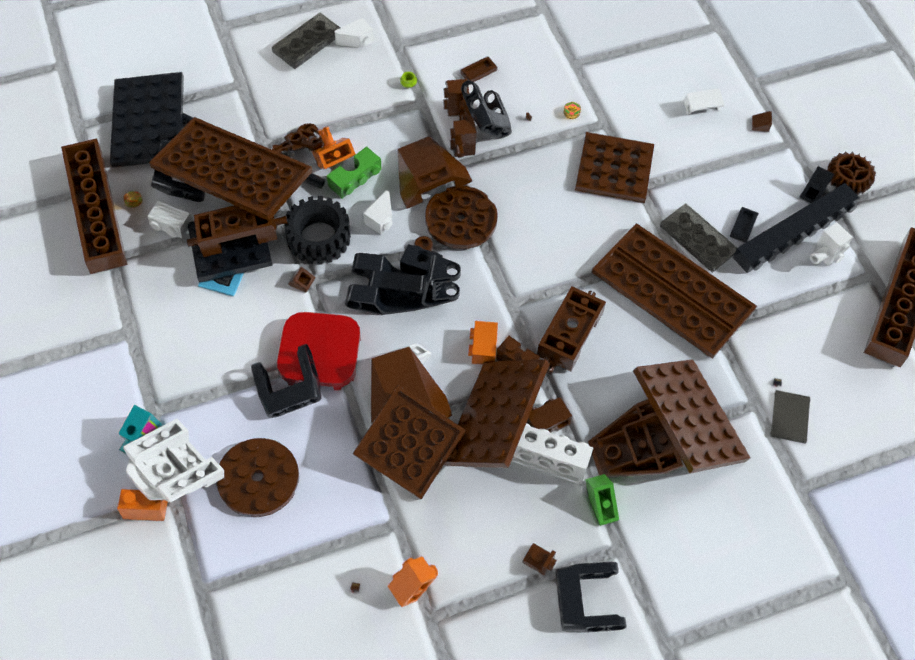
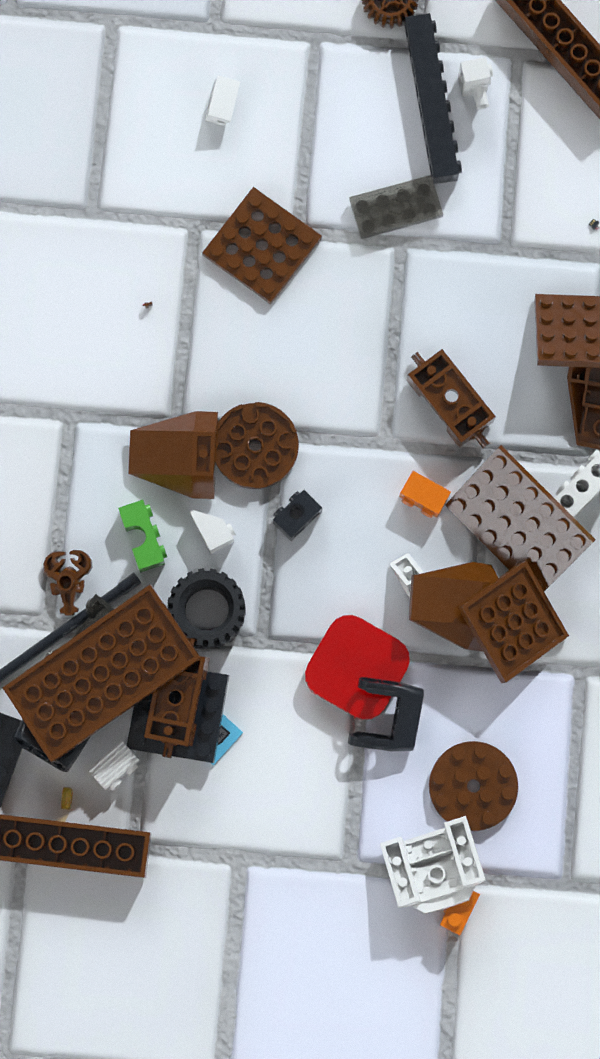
camera: 65 degrees left, 20 degrees up
(137, 424) = (369, 881): teal torso -> none
(301, 279) = (256, 651): reddish brown slope -> none
(332, 151) = (106, 548): orange brick -> none
(398, 291) = (318, 552): black piece -> none
(408, 79) = (31, 410): lime plate -> none
(424, 242) = (271, 502): reddish brown tile -> none
(464, 130) = (97, 371): reddish brown brick -> none
(479, 69) = (52, 328): reddish brown tile -> none
(485, 116) = (152, 345): black connector -> none
(511, 351) = (453, 474): reddish brown brick -> none
(550, 416) = (540, 466): reddish brown brick -> none
(572, 110) = (162, 252): tile -> none
(674, 290) = (446, 268): reddish brown plate -> none
(744, 224) = (399, 149): black tile -> none
(762, 121) = (276, 51): reddish brown slope -> none
(817, 185) = (391, 46): black slope -> none

